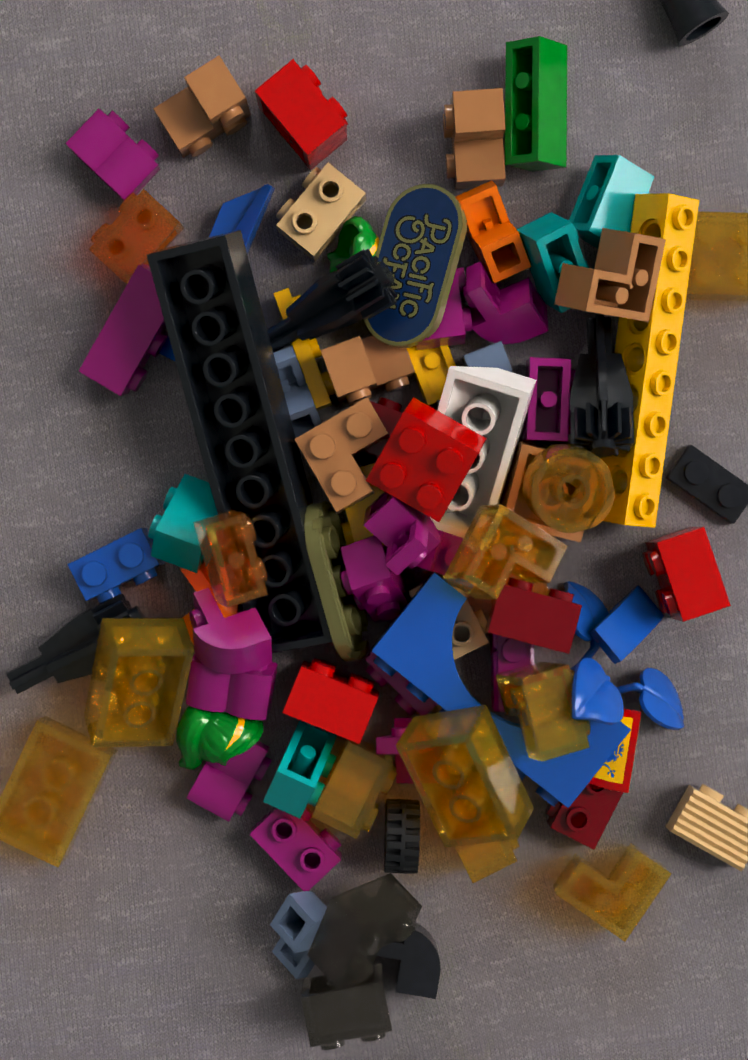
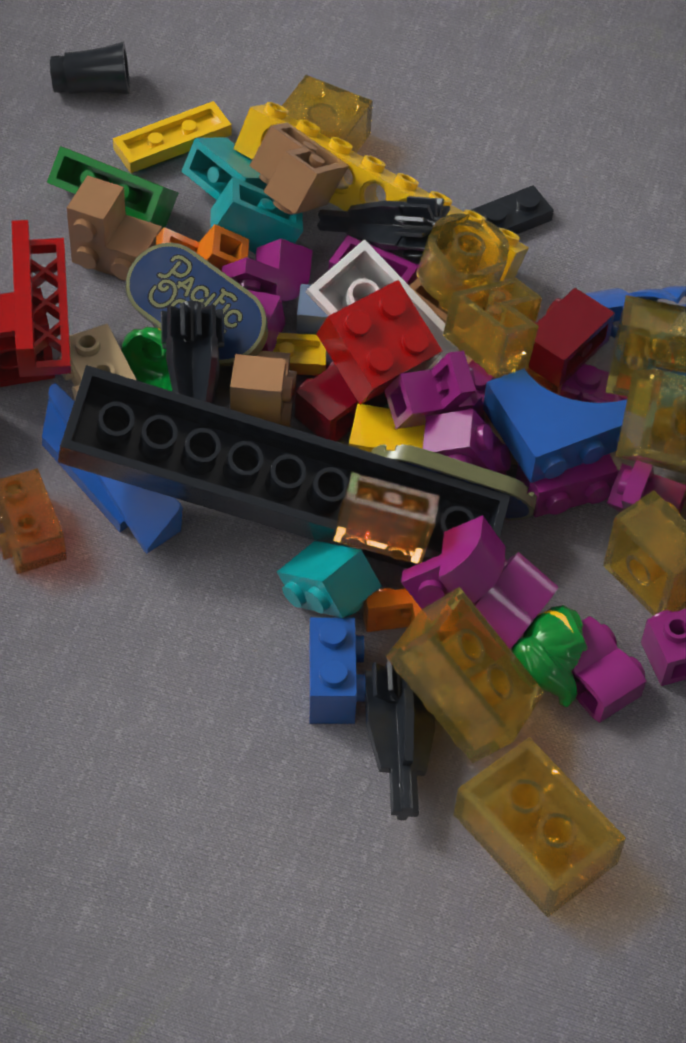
camera: 70 degrees left, 35 degrees down
(128, 337) = (114, 553): magenta brick -> none
(299, 771) = (621, 588): teal brick -> none
(311, 122) = (25, 298): none -> red fence
(332, 450) = (343, 417): medium nougat brick -> none
(332, 700) = (568, 534): red brick -> none
(642, 120) = (170, 136): none -> yellow plate
(686, 574) = (582, 241): red brick -> none

